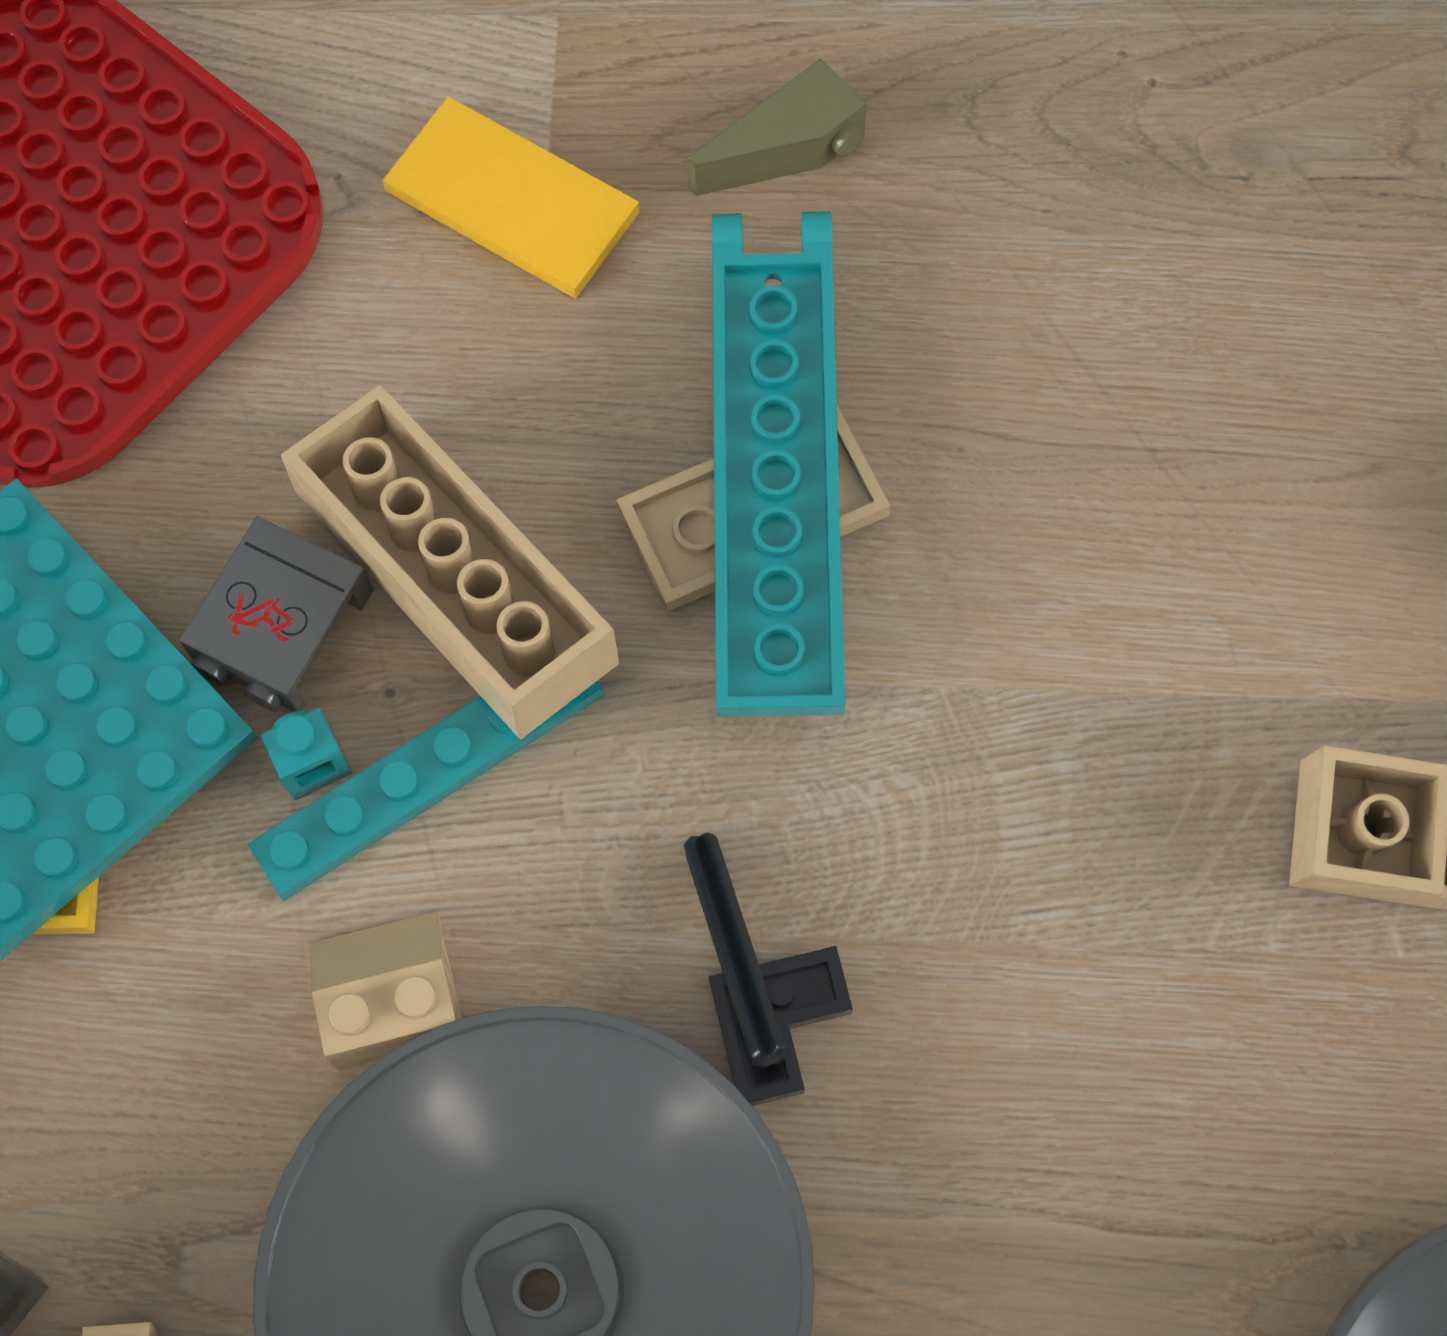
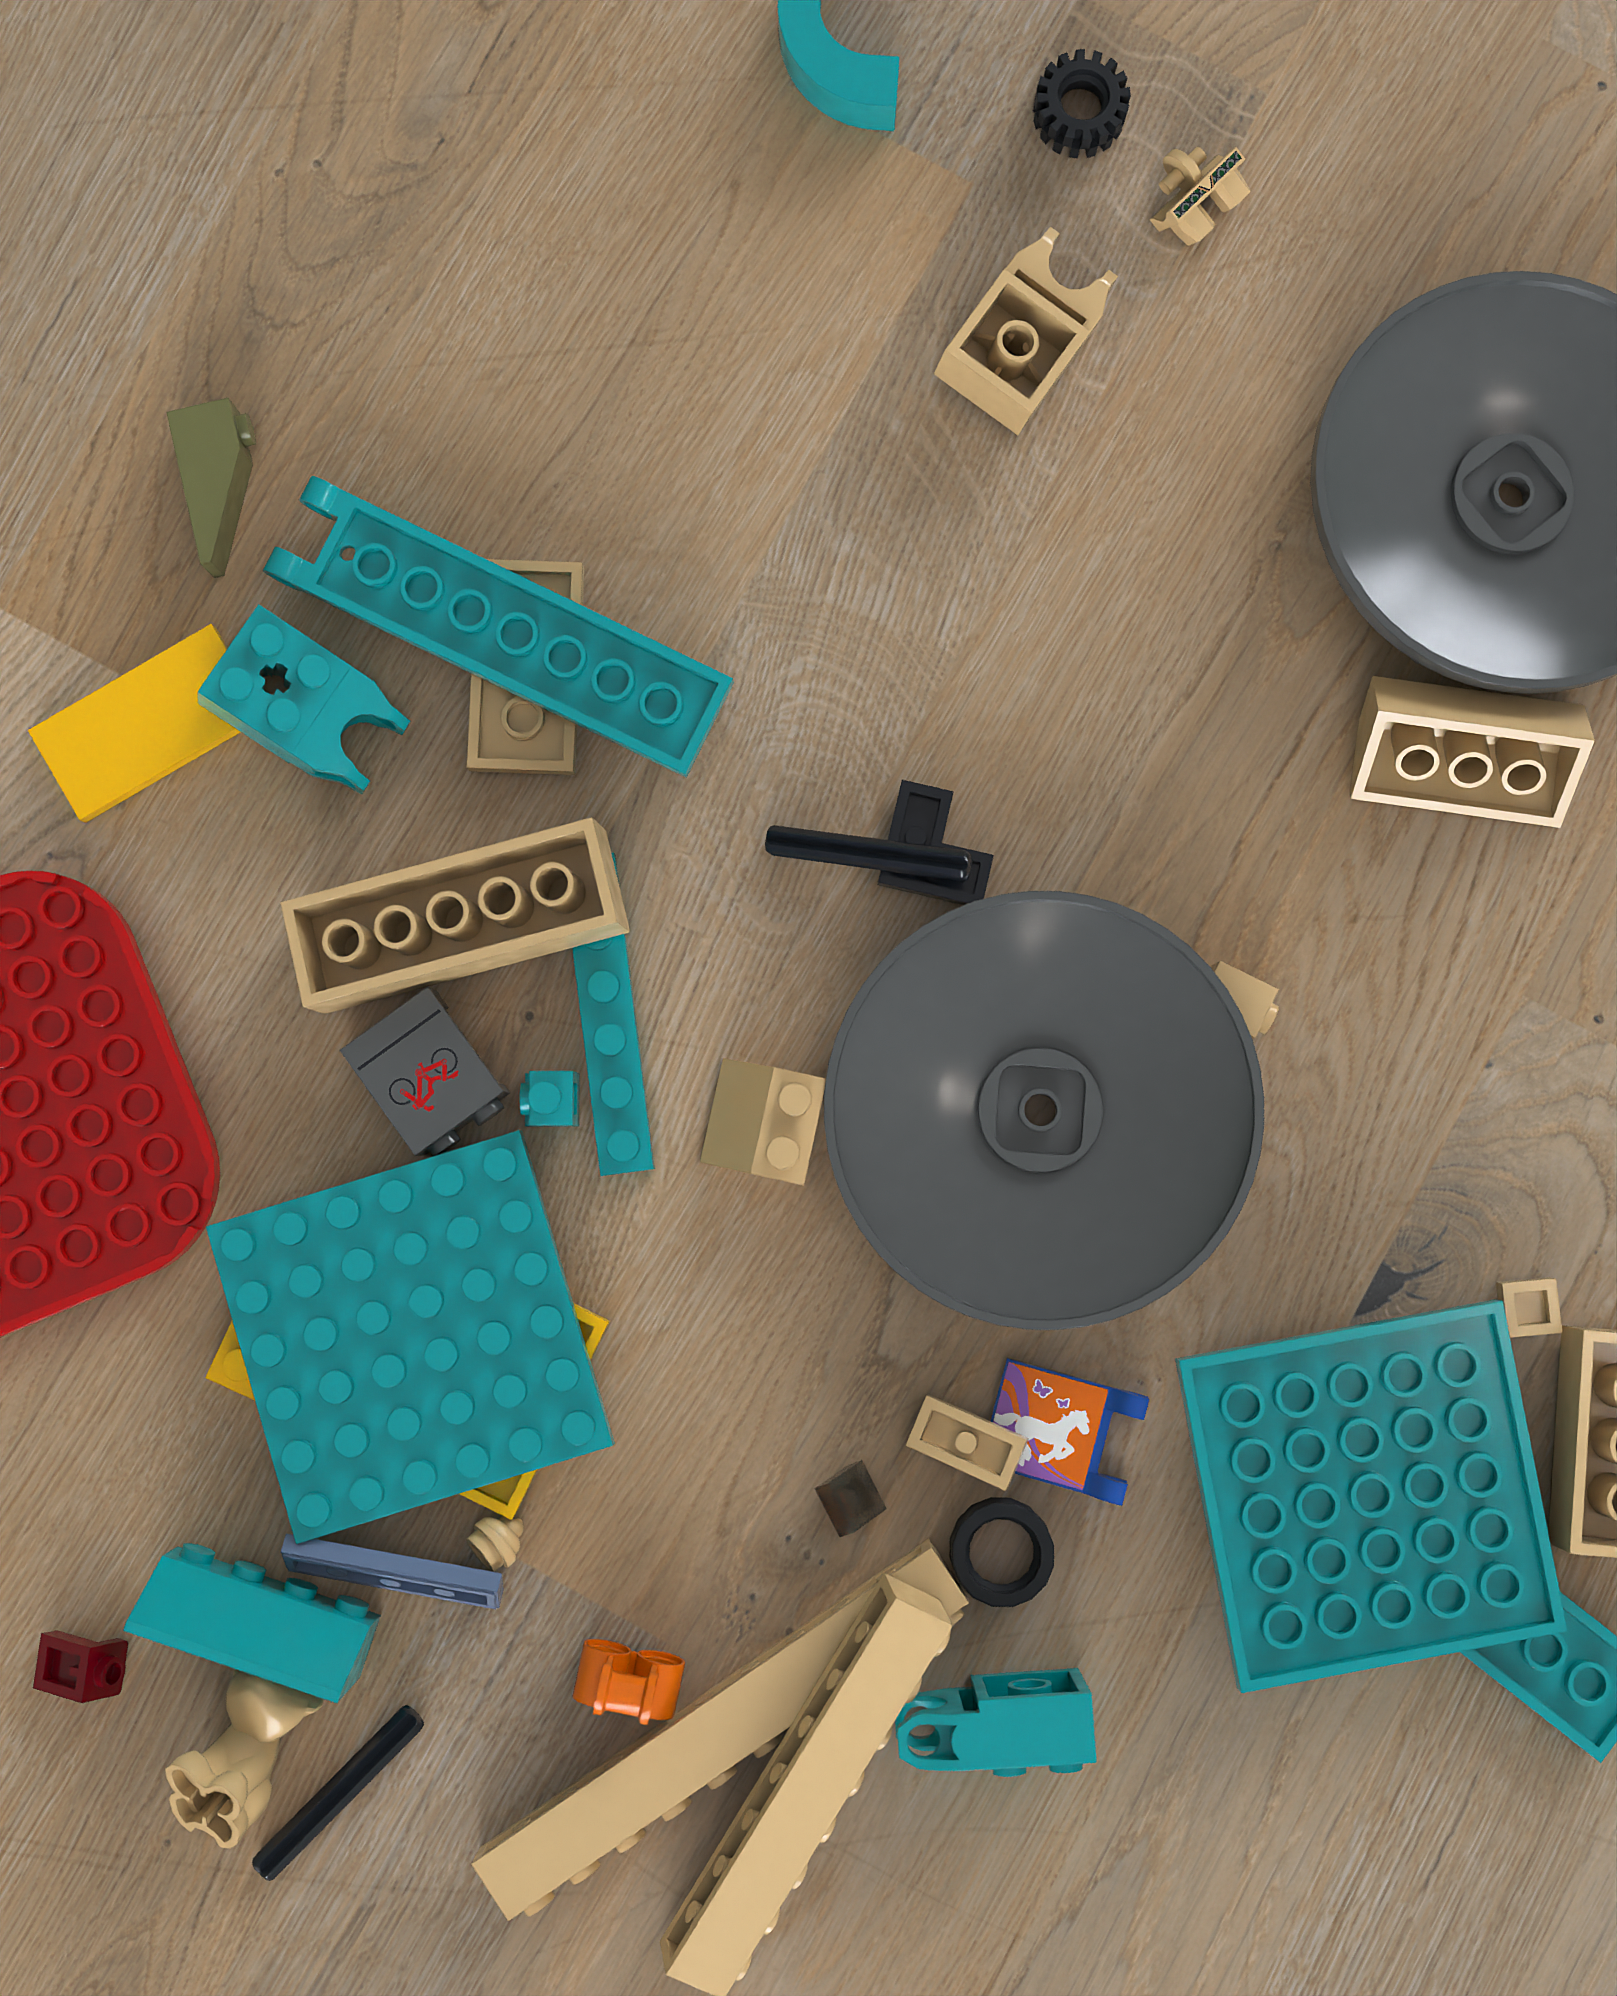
camera: 65 degrees left, 15 degrees up
(594, 326) = (313, 712): none -> teal brick

